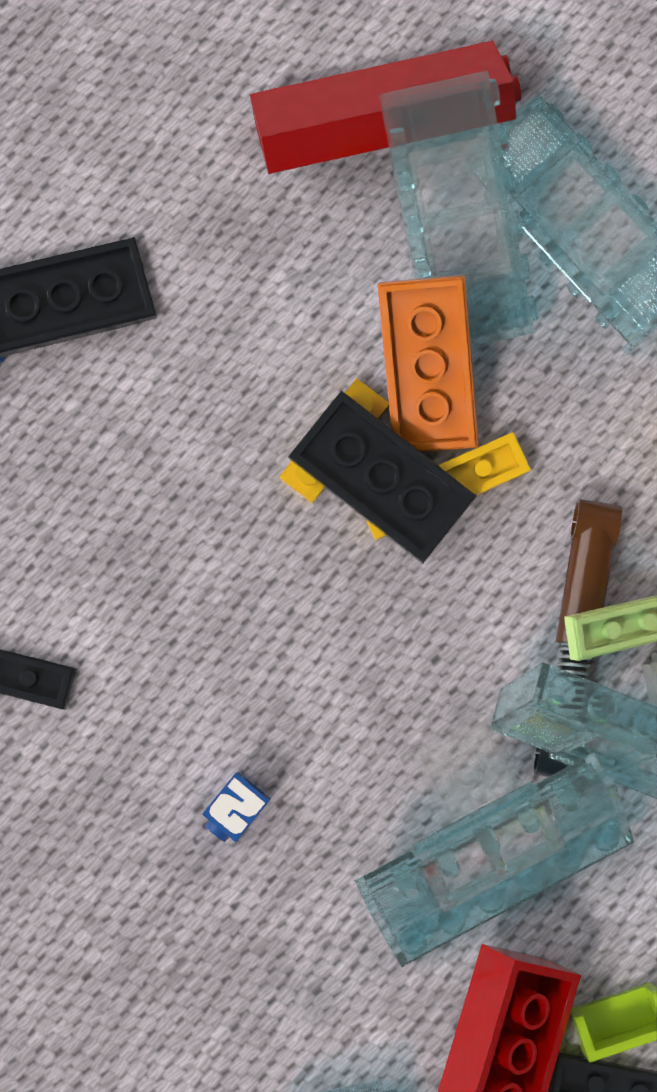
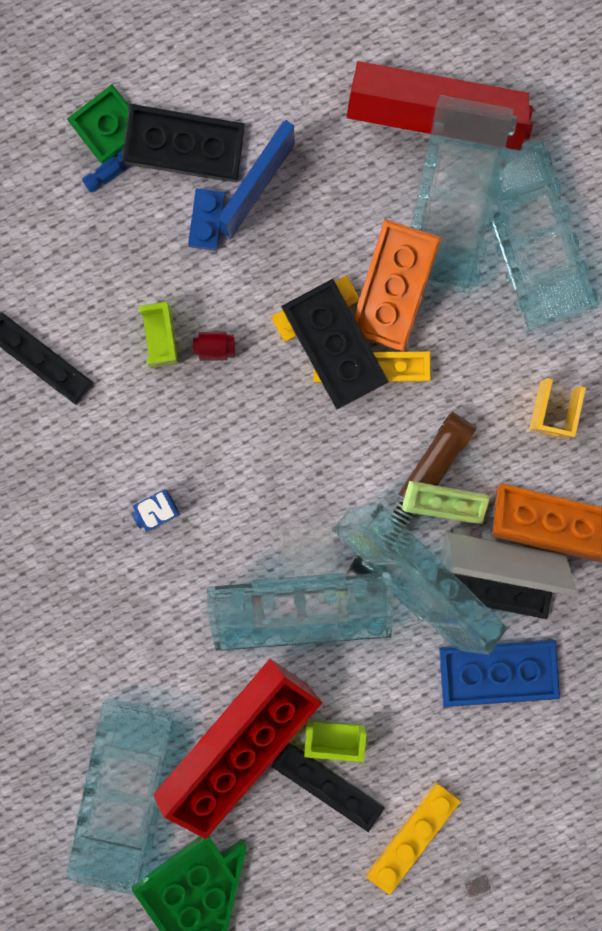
camera: 15 degrees right, 5 degrees up
(136, 384) = (204, 221): none -> blue plate
(139, 565) = (160, 334): none -> lime panel
(184, 303) = (257, 179): none -> blue tile
(220, 548) = (214, 346): none -> dark red brick

